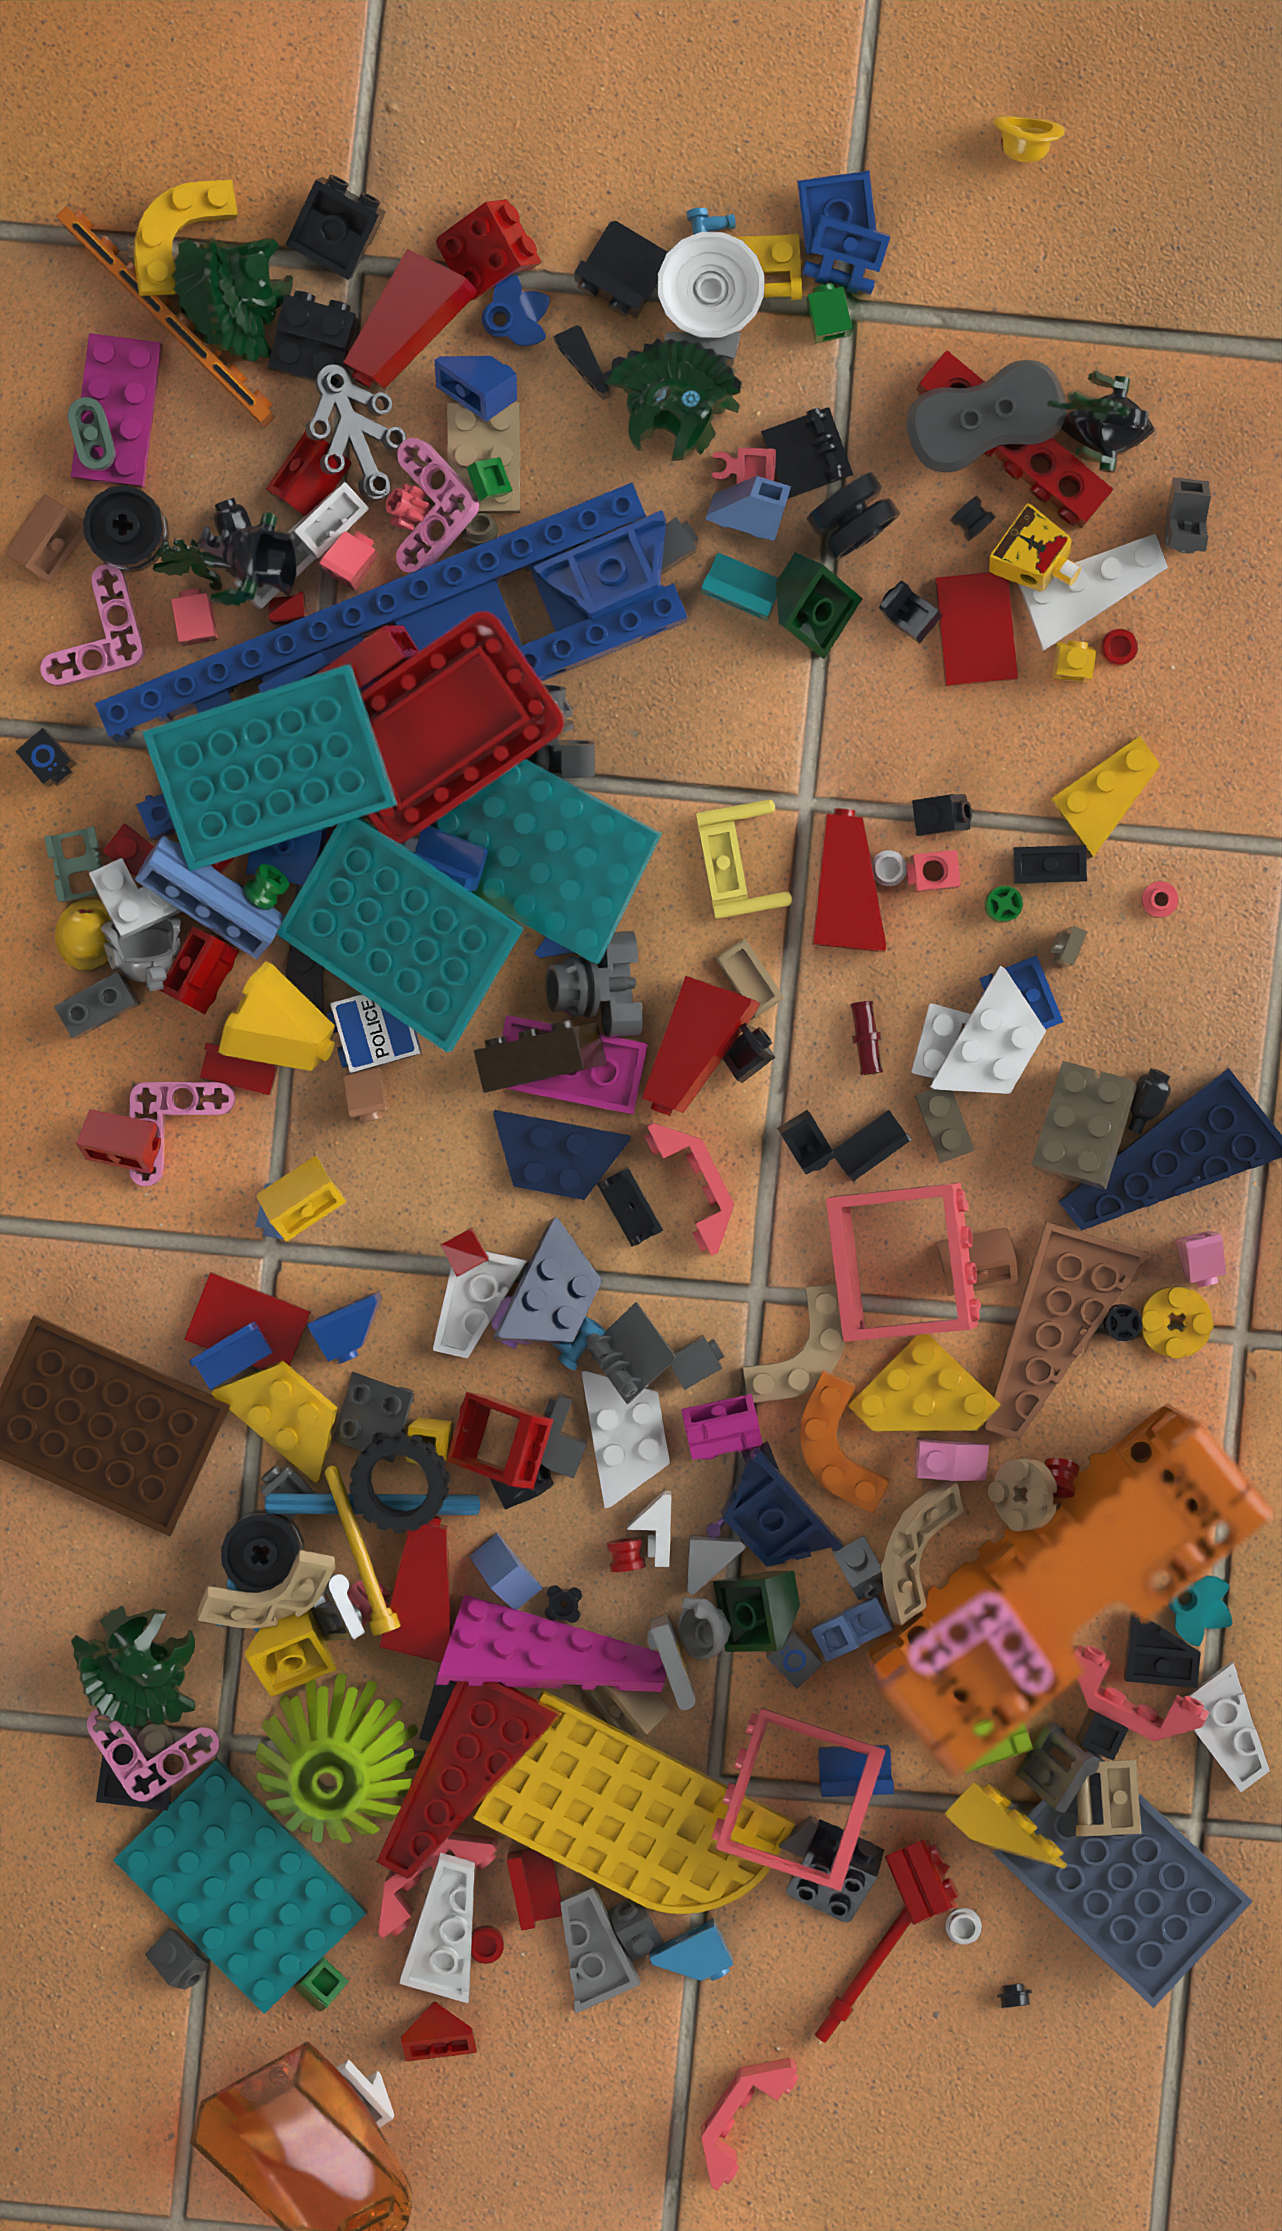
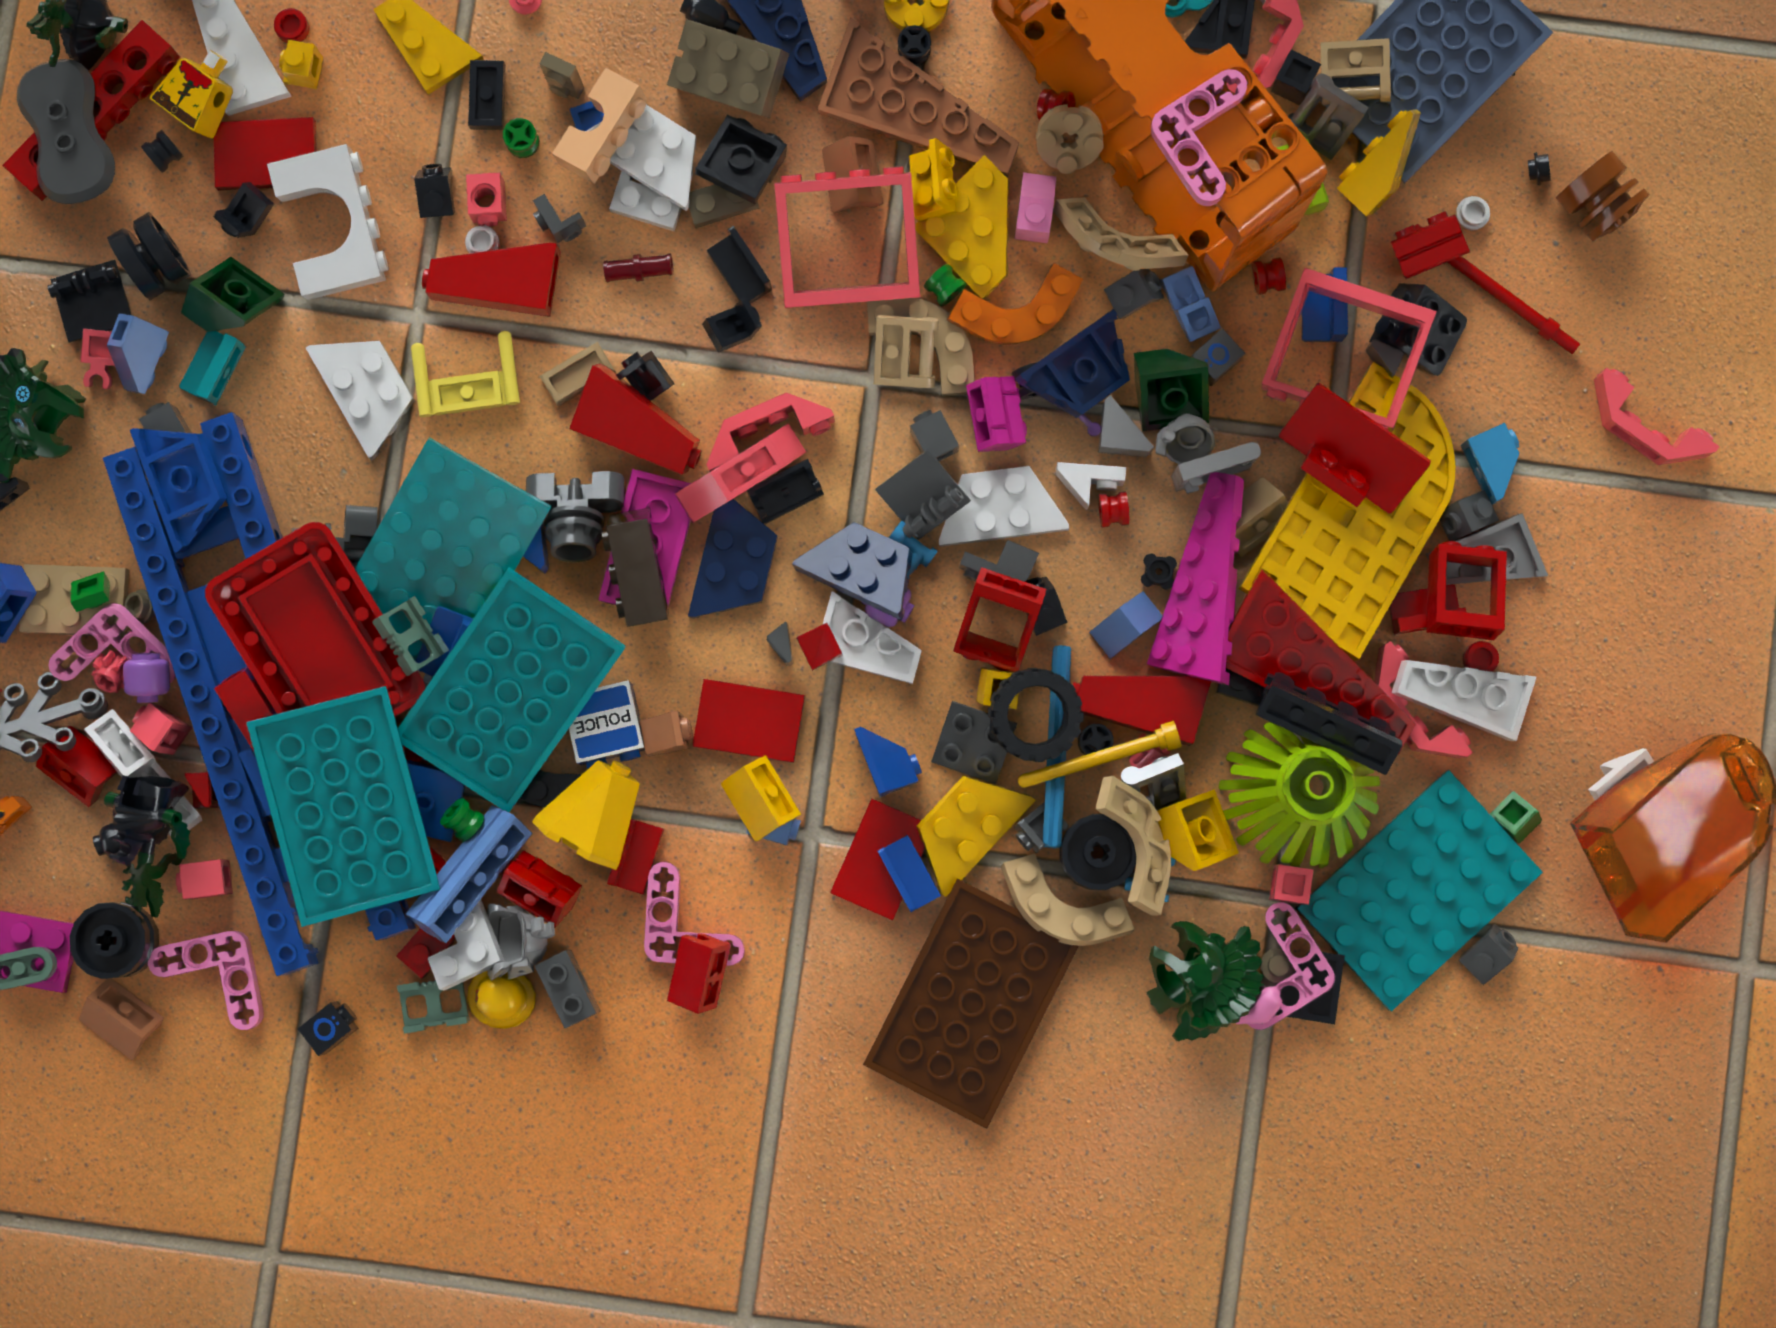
camera: 80 degrees left, 5 degrees down
(108, 1731) = (1264, 1008): none -> bright pink arm
(193, 1507) = (1057, 919): none -> tan plate
(237, 1753) = (1291, 884): none -> coral brick
(376, 1545) = (1095, 736): none -> black wheel
(386, 1179) = (748, 720): none -> red tile
(390, 1792) = (1329, 724): none -> black fence
(401, 545) = (146, 677): none -> medium lavender head
(437, 2035) = (1567, 707): red slope -> none
(458, 833) = (419, 630): none -> sand green piece
(467, 1210) = (781, 644): none -> dark grey slope
(514, 1921) = (1464, 623): none -> red window
(642, 1161) = (740, 473): none -> coral slope
(689, 1805) = (1352, 451): none -> red bracket
(723, 752) = (364, 389): none -> white wing
(785, 1315) = (893, 351): none -> tan plate
(860, 1366) = (944, 285): none -> green wheel
(882, 1713) = (1269, 276): none -> red wheel
(915, 938) = (547, 218): none -> dark grey bracket
(951, 711) = (358, 259): none -> white arch
(970, 1350) = (933, 181): none -> yellow bracket
(981, 984) = (590, 151): none -> light nougat arch
(981, 2064) = (1603, 196): none -> dark orange wheel
(987, 1144) = (742, 159): none -> black plate

